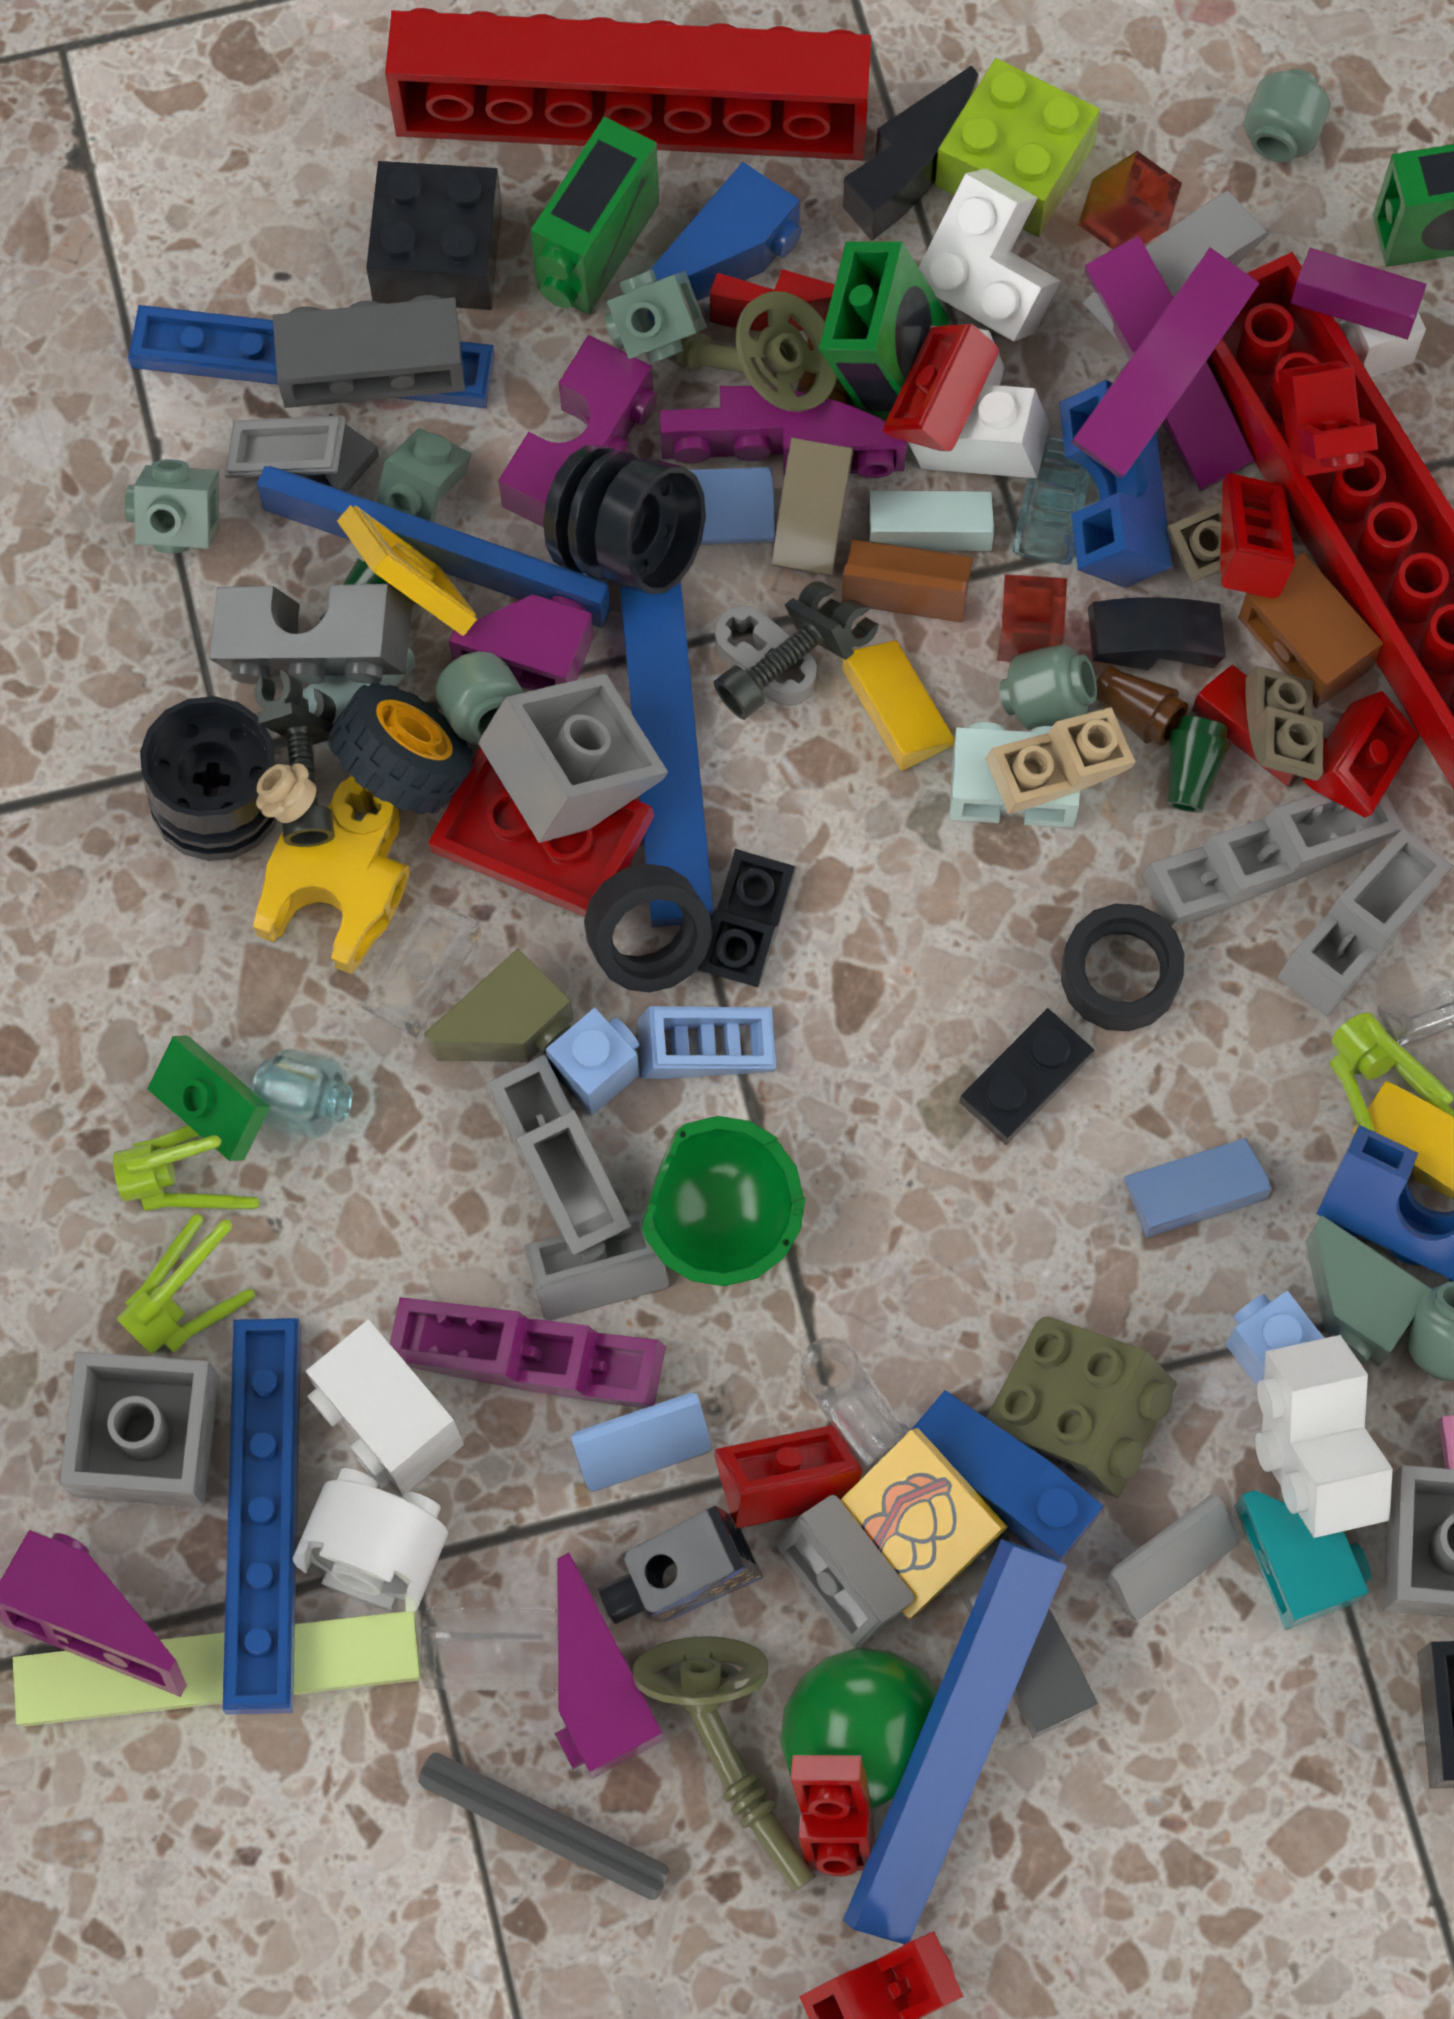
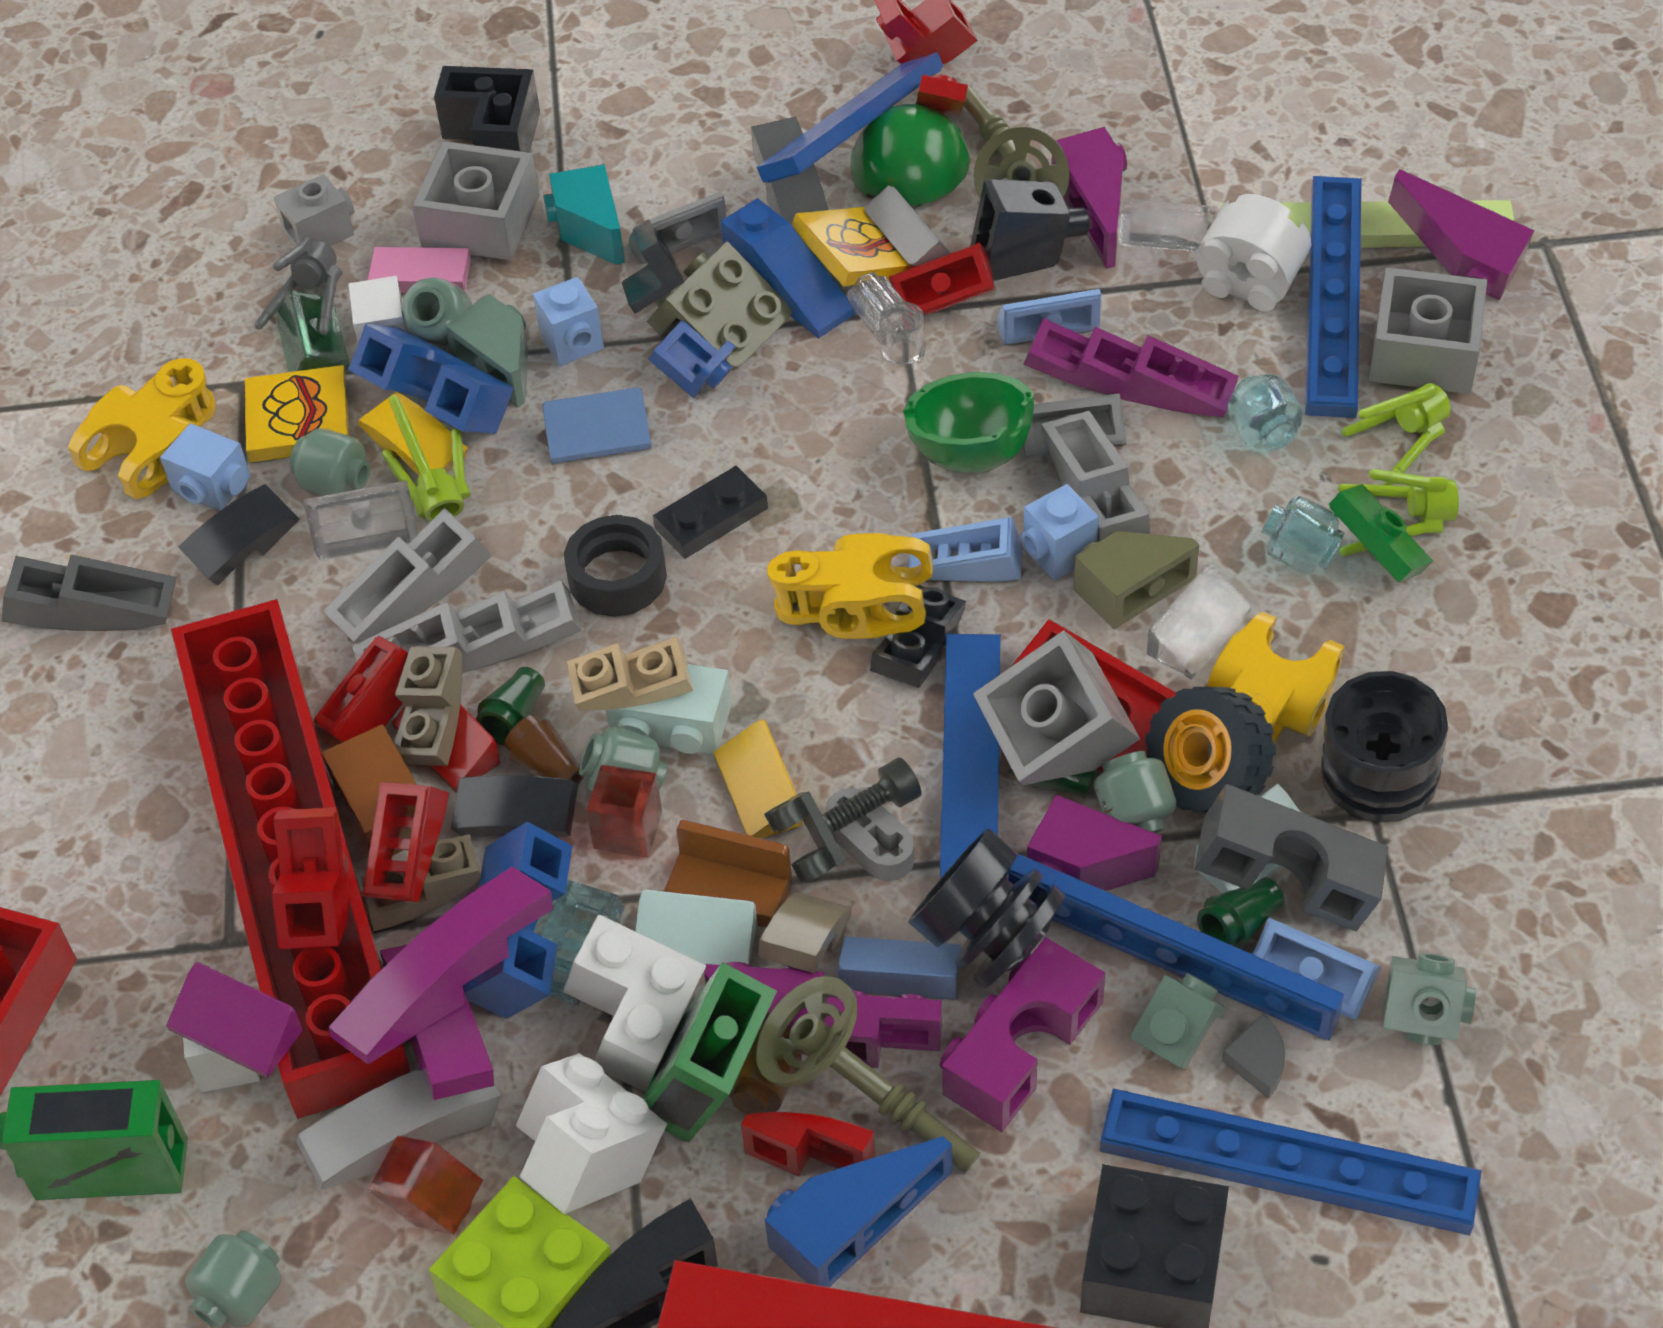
camera: 170 degrees left, 20 degrees down
(285, 556) = (1319, 963): none -> light blue slope
(285, 792) = (1304, 683): tan plate -> none
(288, 444) = (1316, 1051): light grey tile -> none
(291, 719) = (1296, 686): pearl dark grey bar -> none
(349, 1284) = (1265, 412): none -> clear light blue head
(368, 351) = (1229, 1115): dark grey brick -> none
(388, 1408) = (1236, 307): white brick -> none
(407, 569) = (1201, 876): yellow tile -> none
(544, 1826) = (1140, 132): dark grey axle -> none
(595, 216) = (981, 1222): green brick -> none
(670, 963) = (1004, 602): black tyre -> none
(674, 311) = (932, 1094): sand green brick -> none
(835, 946) = (850, 584): none -> yellow piece
(942, 387) = (664, 976): red slope -> none
(1096, 1298) = (691, 359): none -> blue bracket
(1180, 1421) = (658, 276): none -> black panel
(1319, 1439) = (555, 235): white brick -> none

